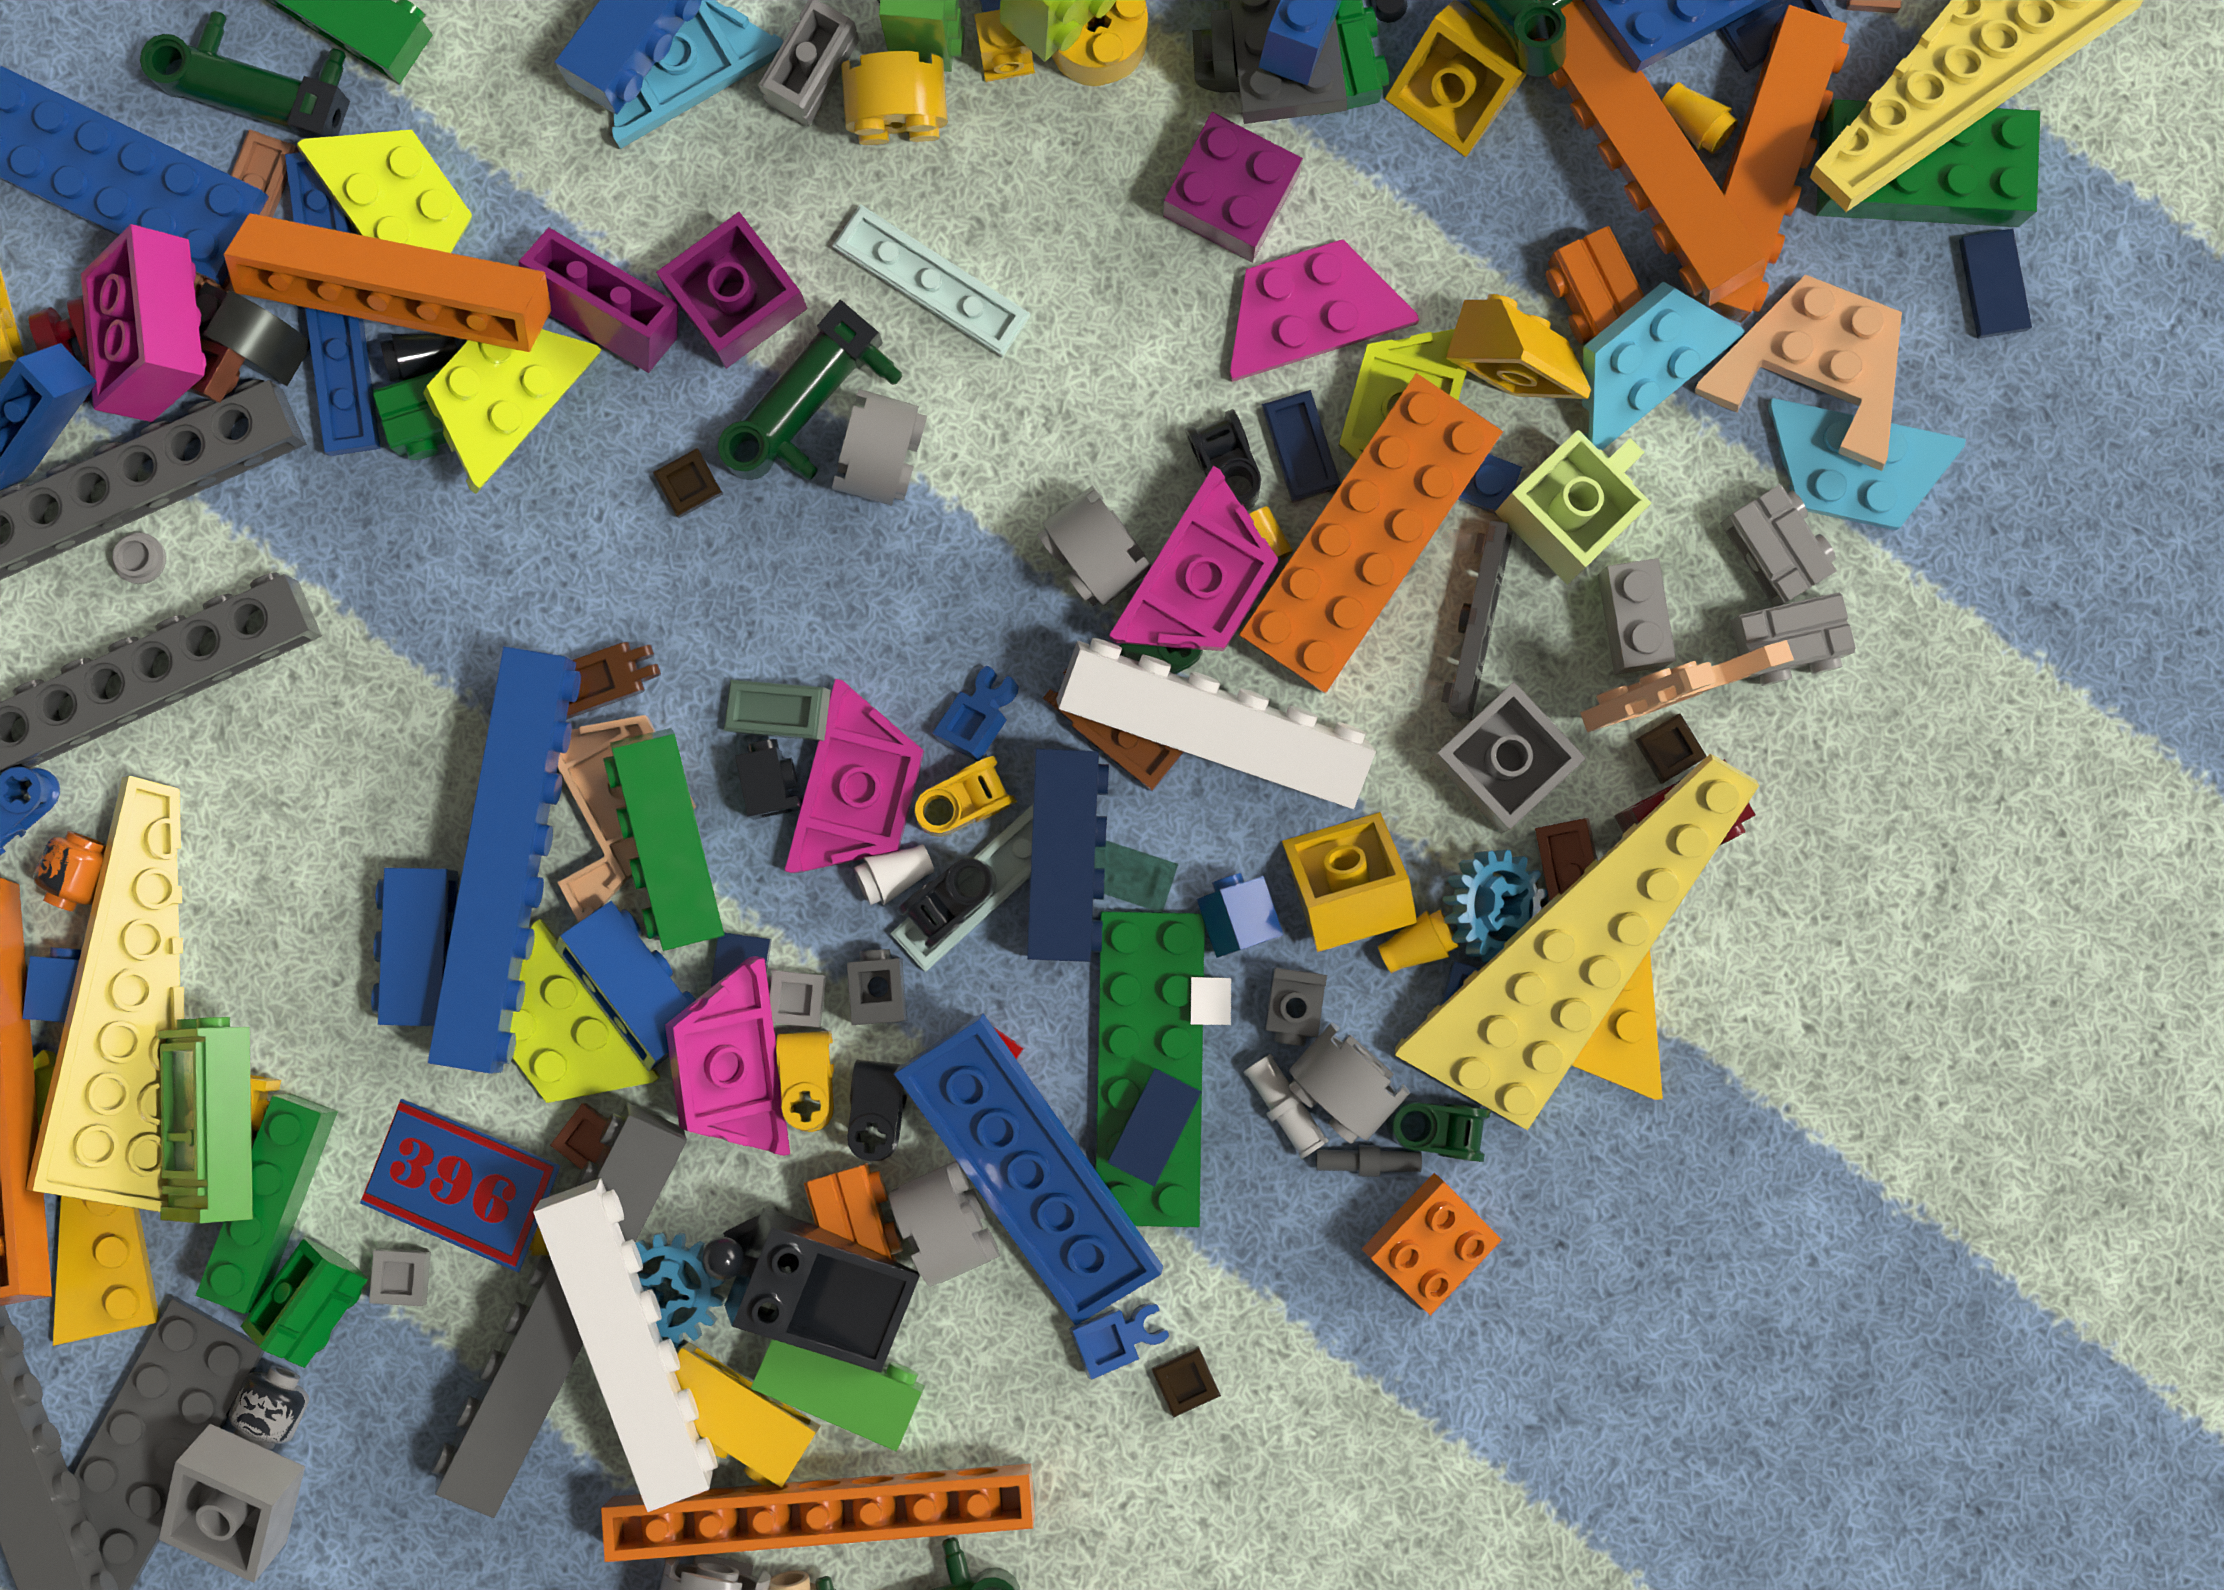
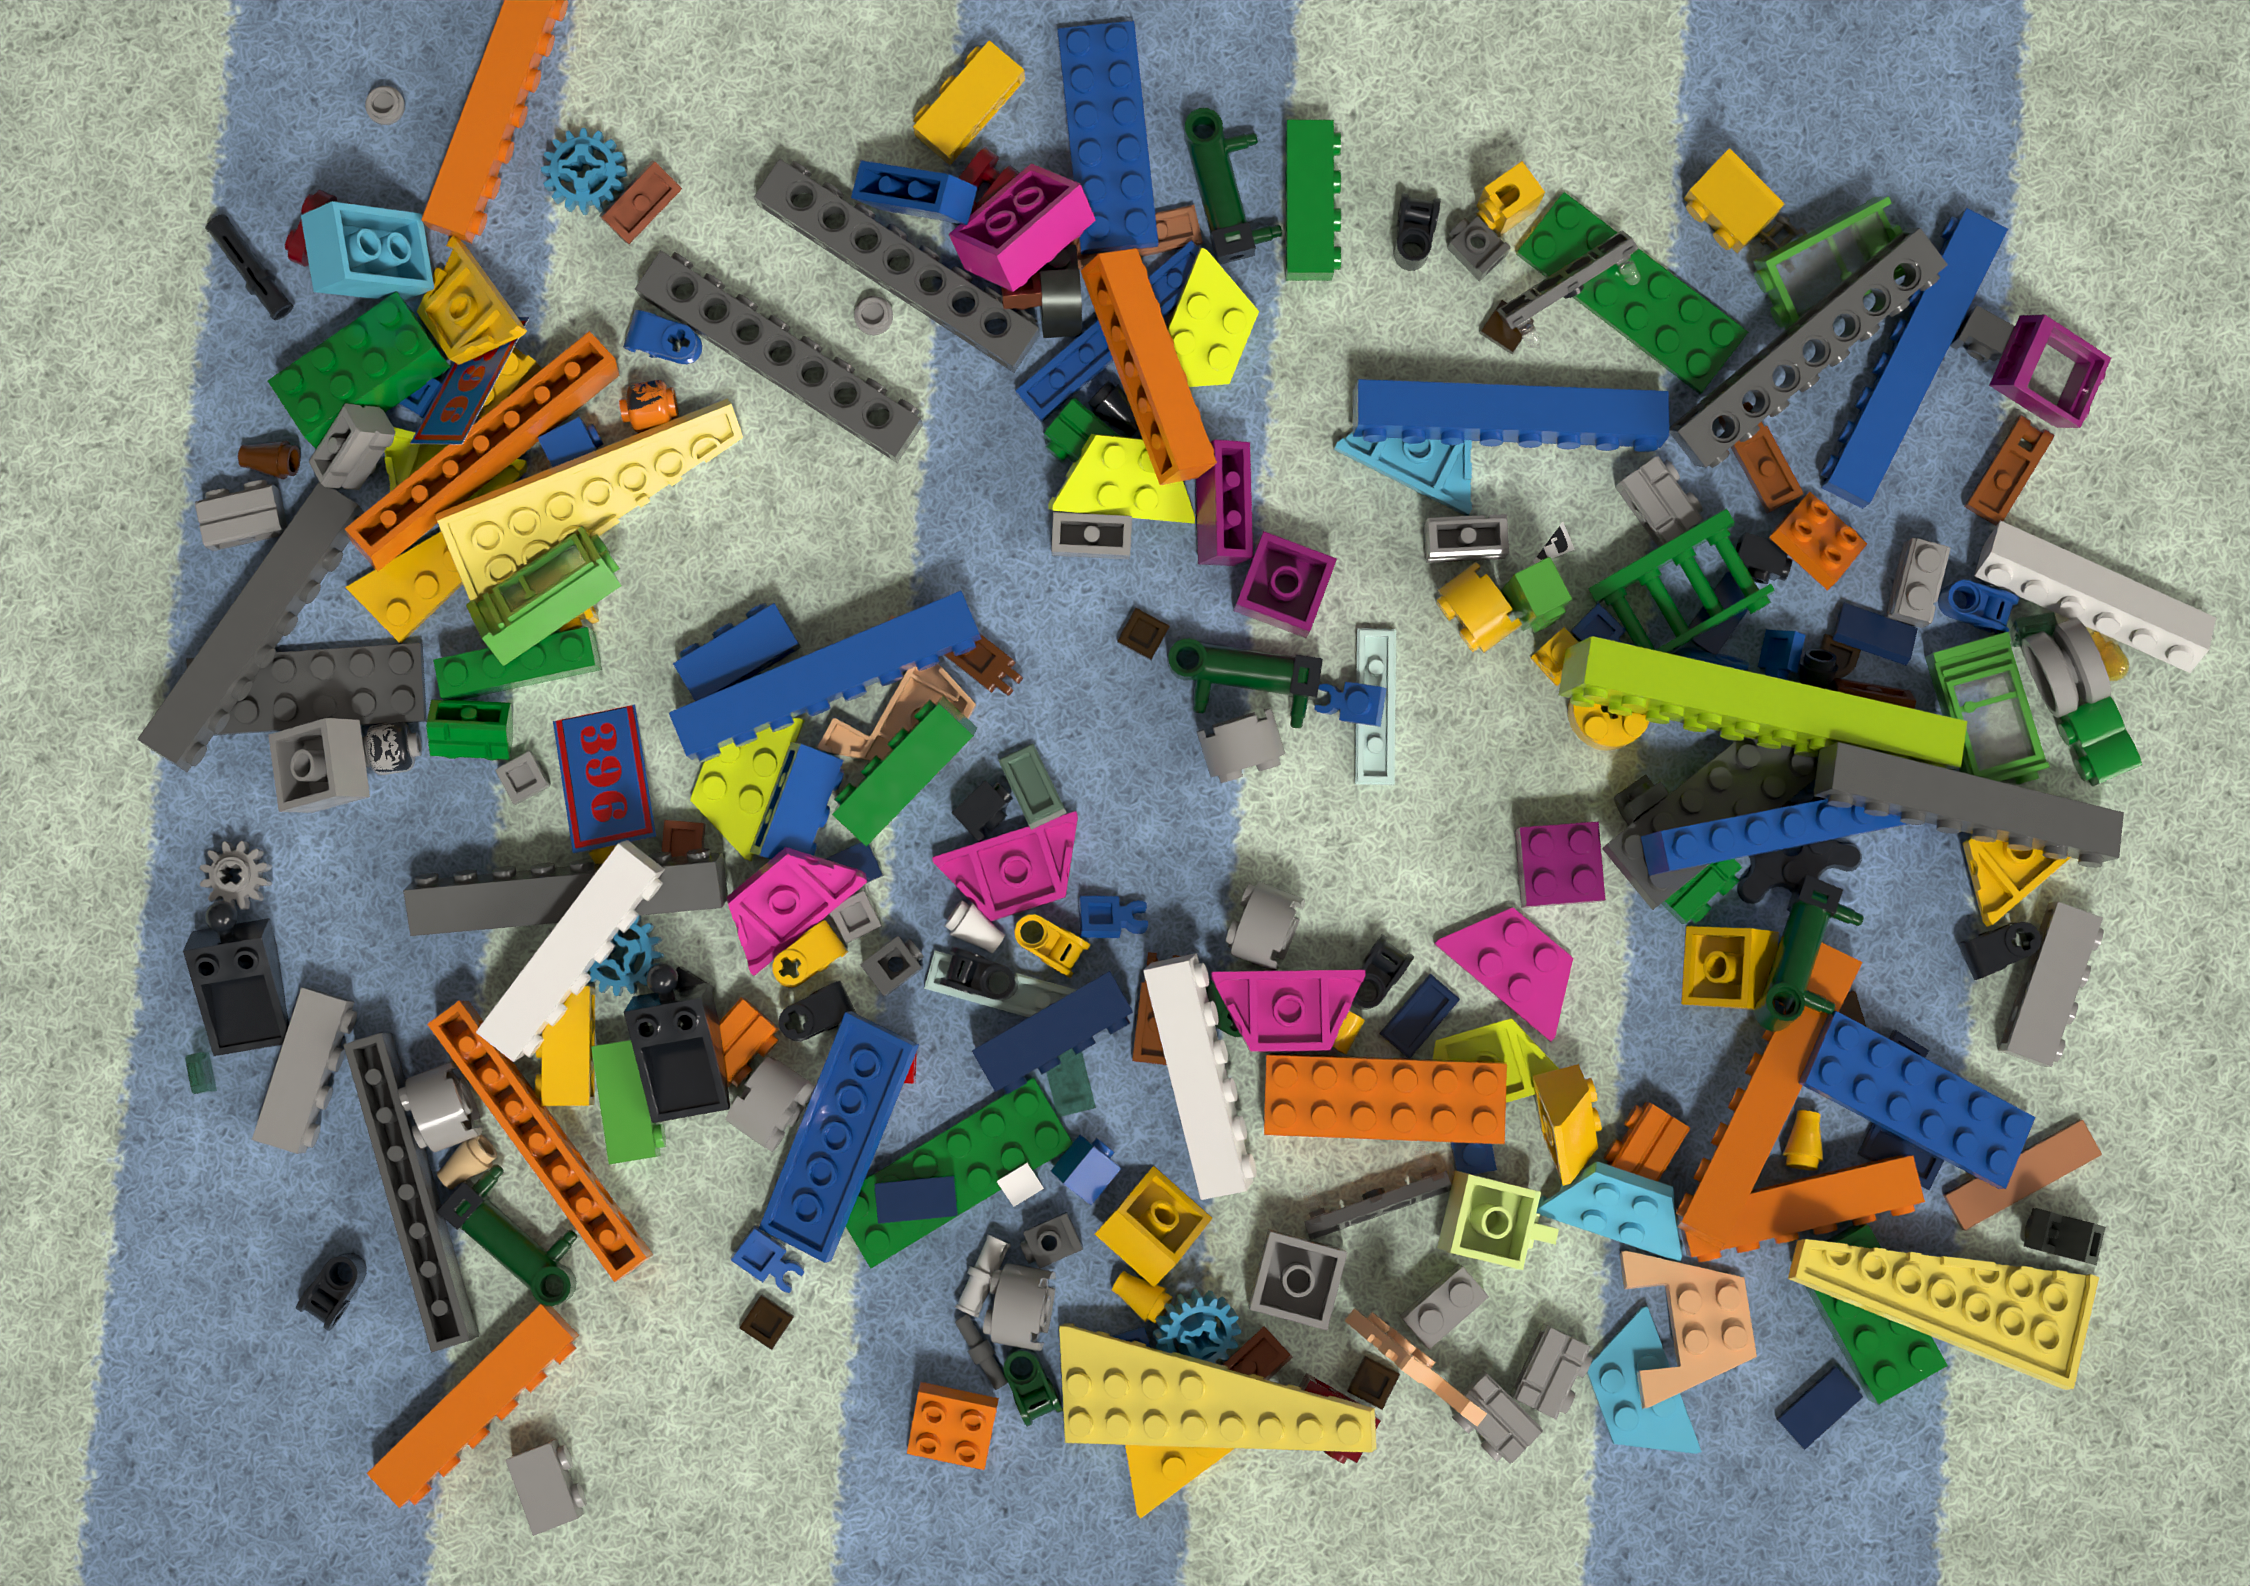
camera: 55 degrees right, 0 degrees up
(540, 467) = (1091, 535): none -> light grey brick
(916, 296) = (1357, 703): none -> blue plate

